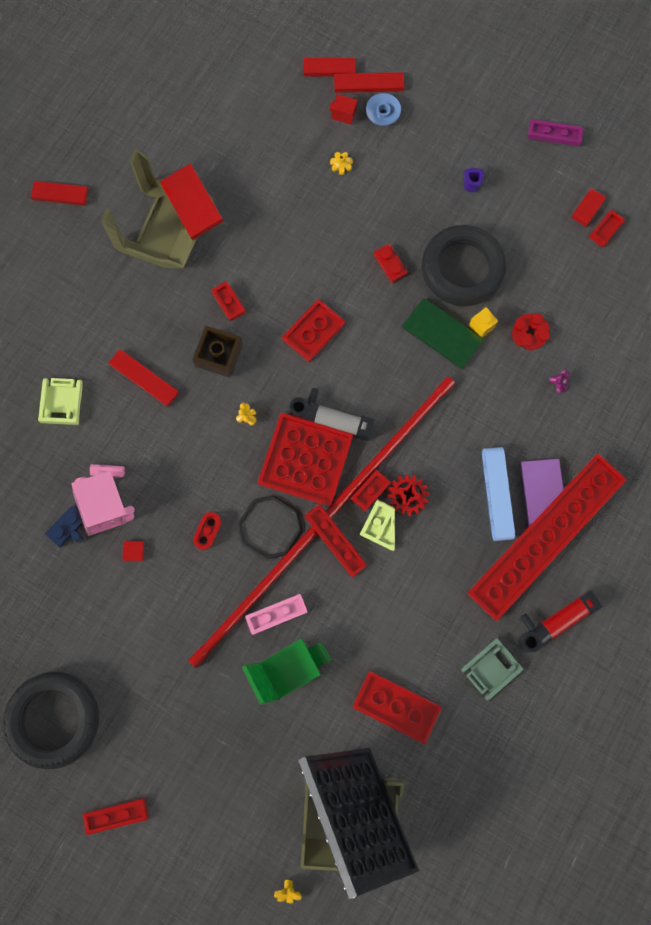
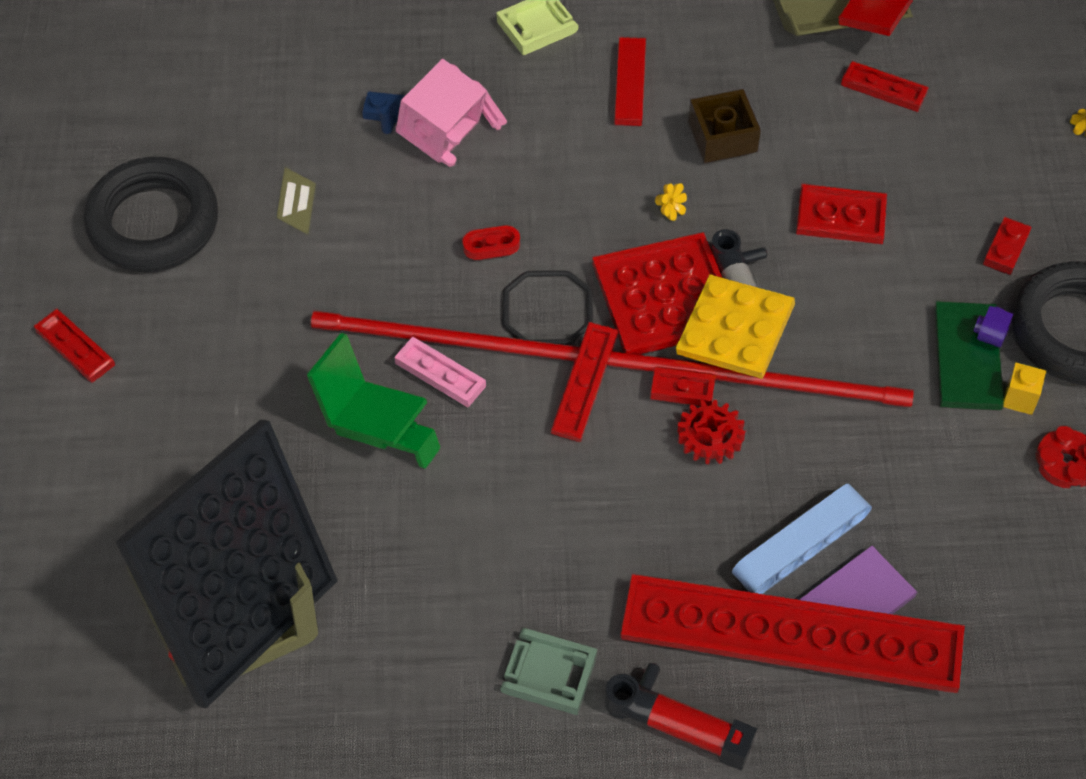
camera: 60 degrees right, 20 degrees down
(95, 623) = (296, 200): none -> olive sticker
(133, 551) = (410, 186): red tile -> none
(228, 301) = (798, 106): red plate -> none
(244, 245) = (884, 86): none -> red tile
(287, 893) = (85, 581): yellow plant -> none
(358, 440) = (735, 326): none -> yellow plate
(381, 525) = (645, 421): yellowish green wing -> none
(397, 707) = (414, 582): red tile -> none
(441, 311) = (994, 326): none -> dark purple plate
(560, 381) = (1032, 532): magenta plant -> none

